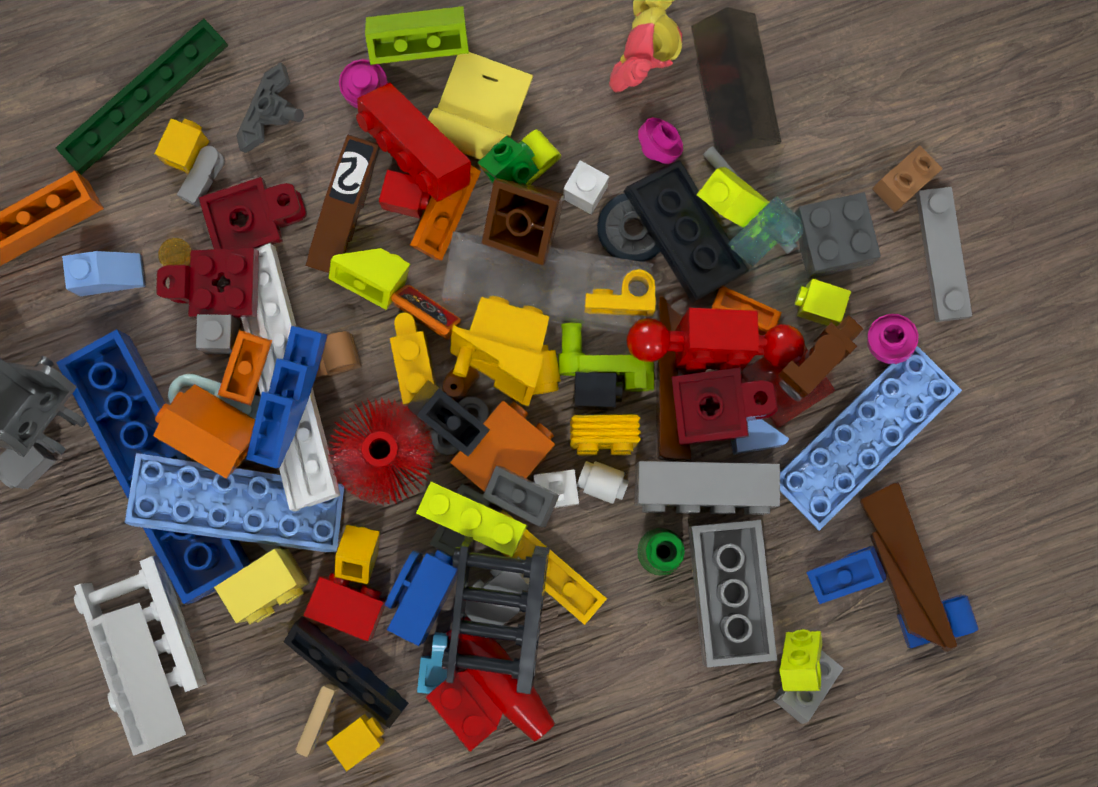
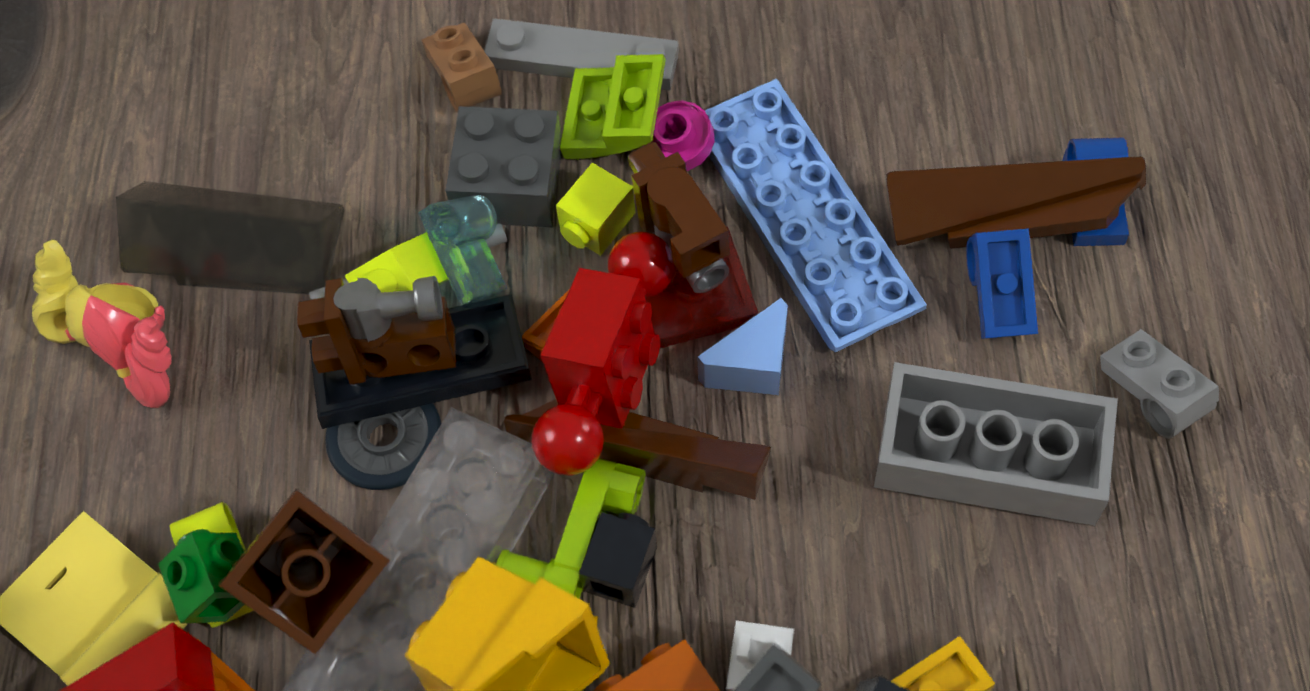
camera: 70 degrees left, 20 degrees down
(585, 187) = (290, 468): white brick -> none
(602, 481) = (767, 588): white brick -> none
(604, 302) = (494, 452): yellow plate -> none
(604, 432) = (688, 560): yellow brick -> none
(648, 551) = (904, 529): green plant -> none
(660, 140) = (269, 356): dark pink plate -> none
(685, 205) = (379, 330): none -> reddish brown hips
(708, 485) = (821, 433): light grey brick -> none
(736, 405) = (707, 346): dark red plate -> none
(801, 661) = (1125, 369): neon yellow plate -> none
(903, 289) = (613, 107): none -> lime slope

